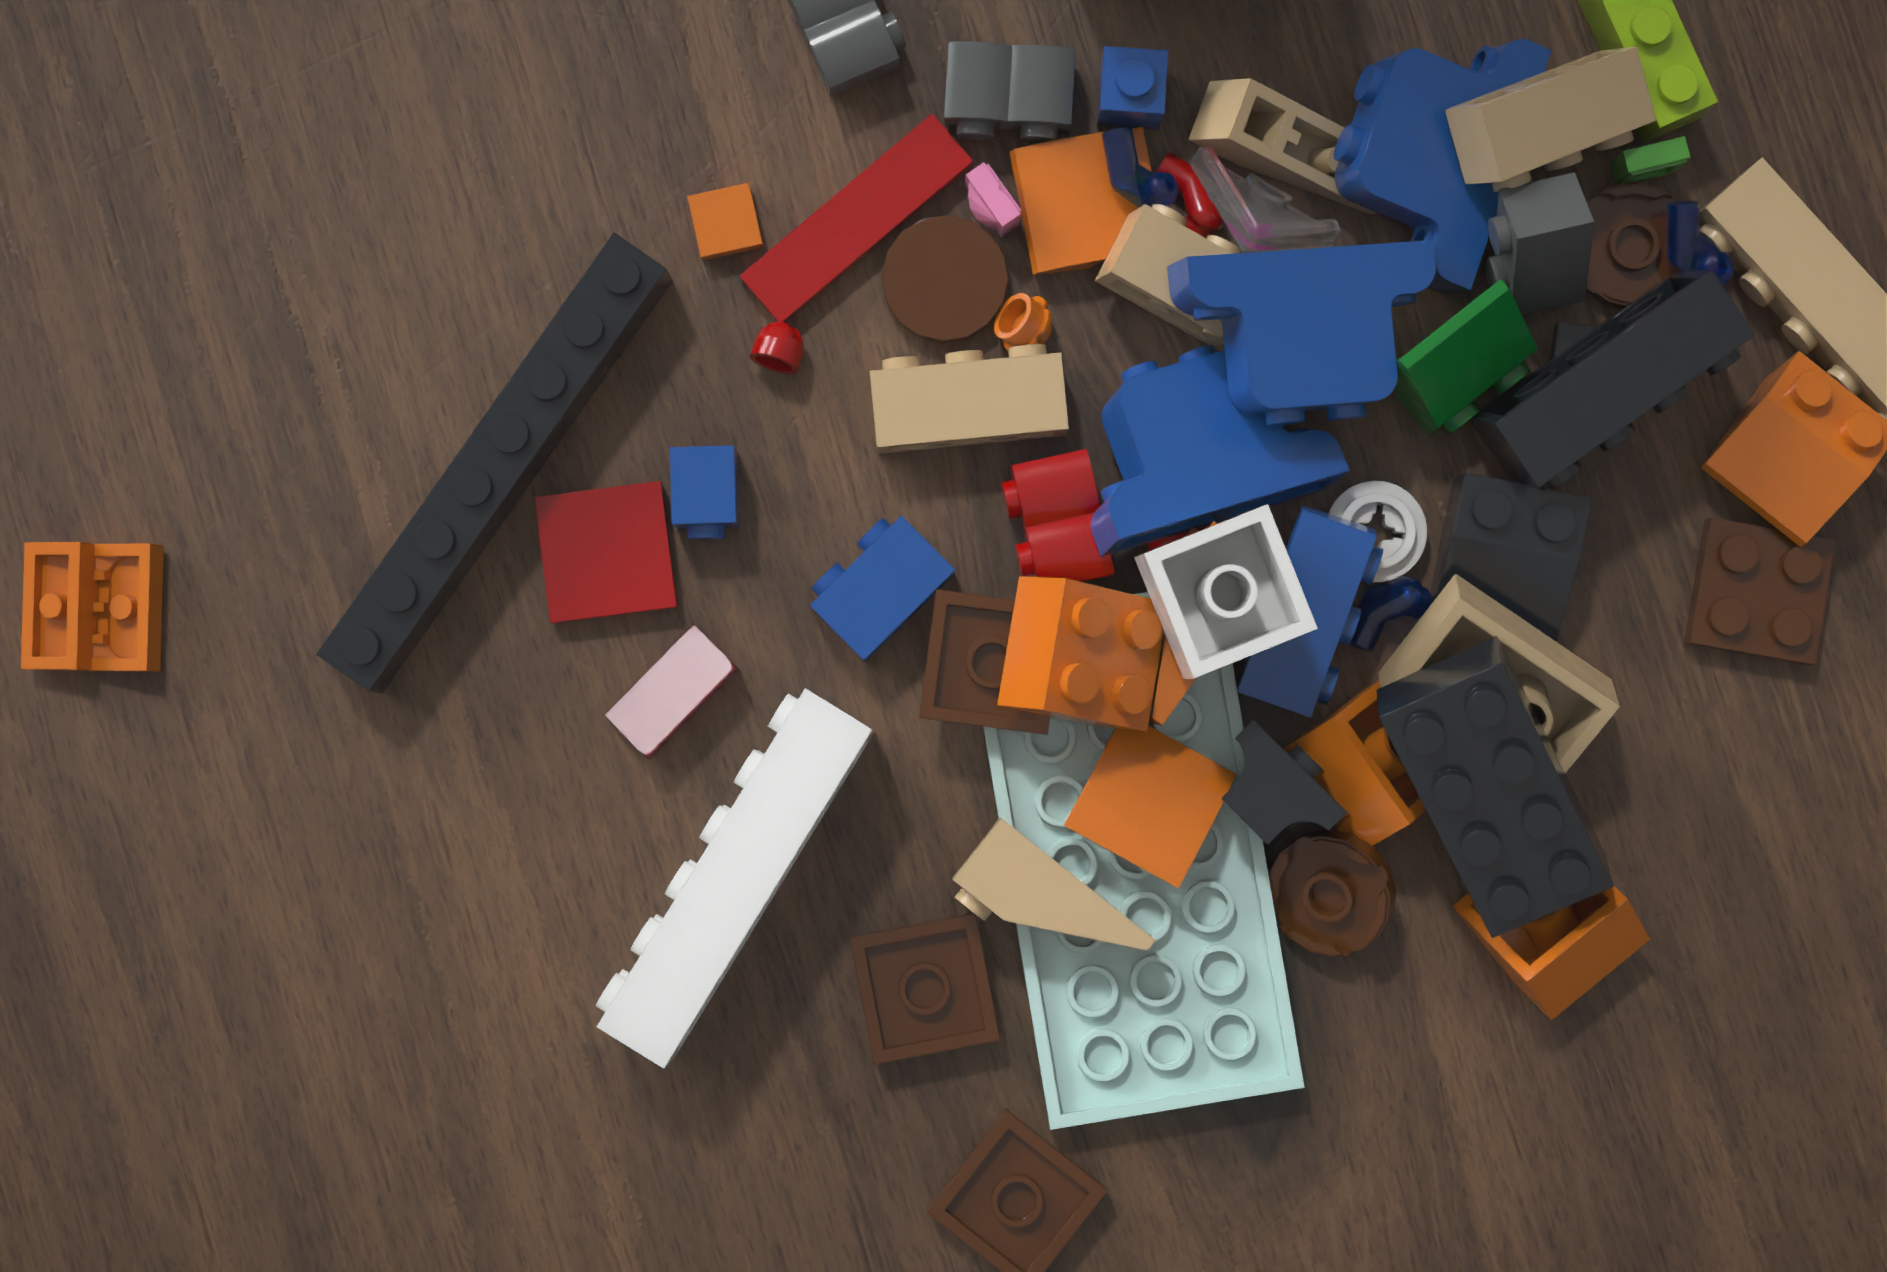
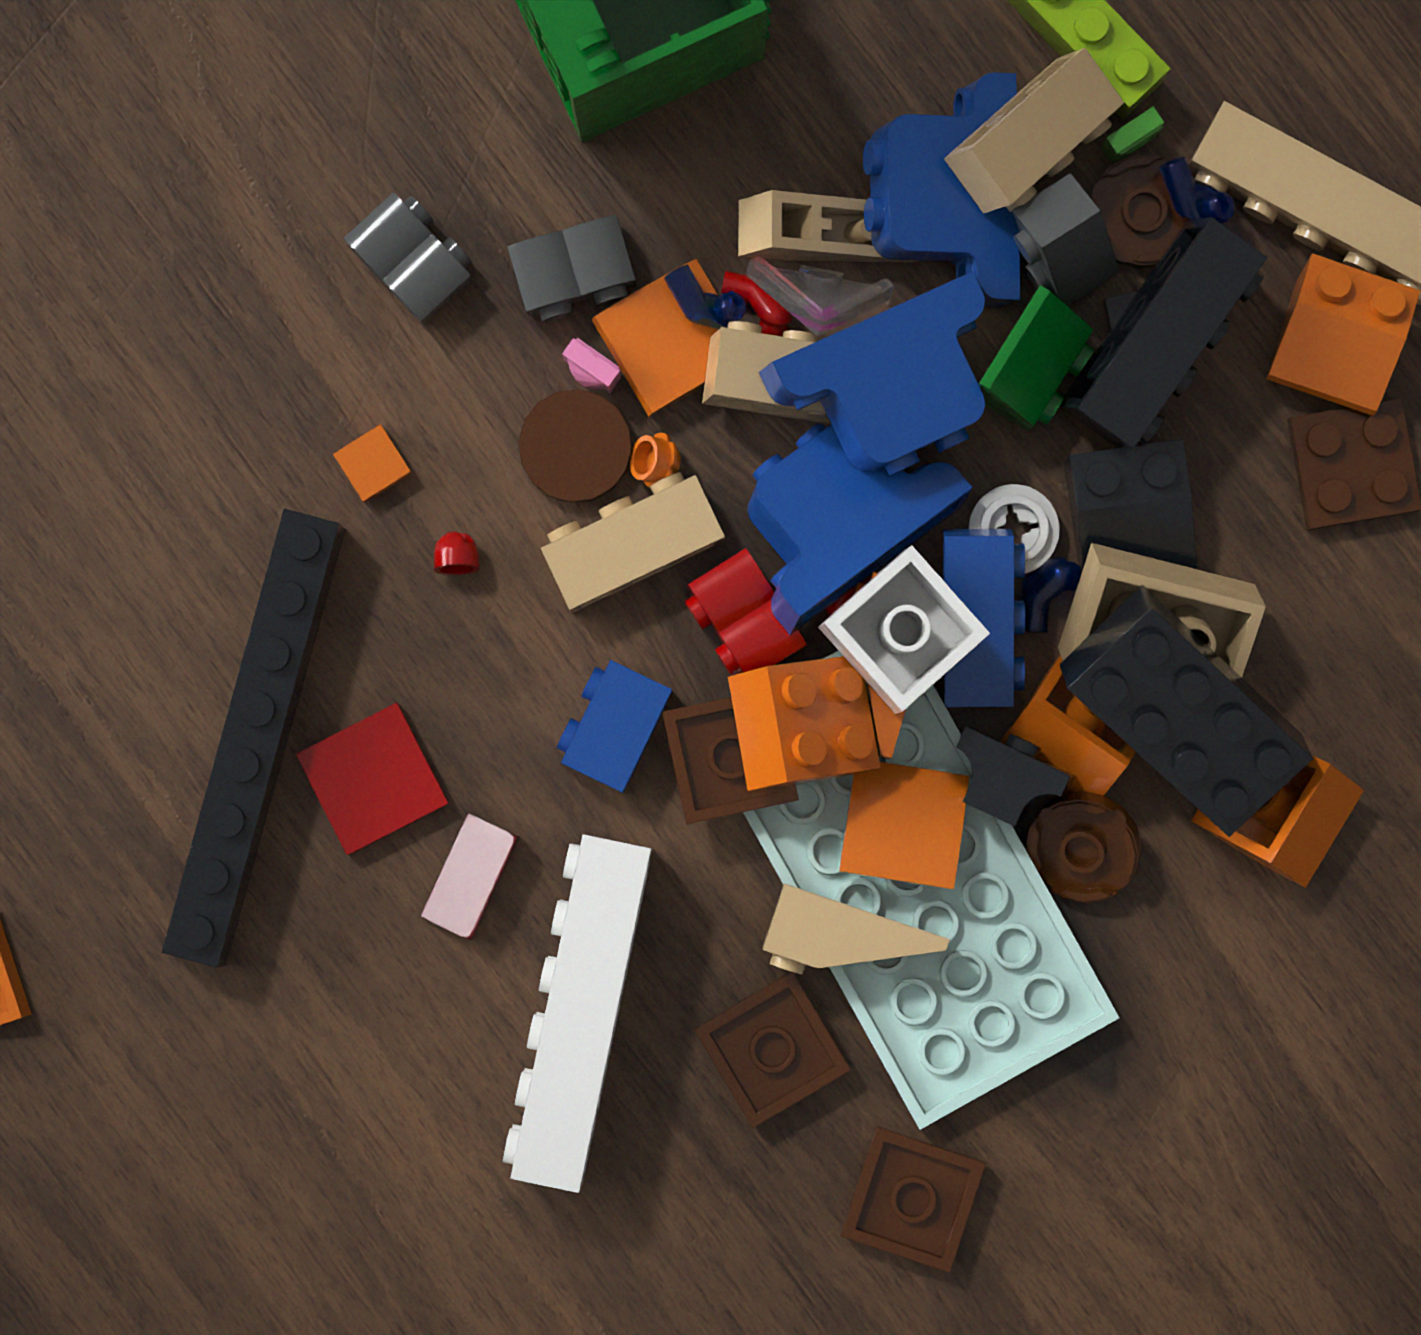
camera: 15 degrees left, 0 degrees up
(705, 490) = (437, 697): blue brick -> none
(856, 219) = (482, 422): red tile -> none
(1132, 87) = (675, 229): blue brick -> none

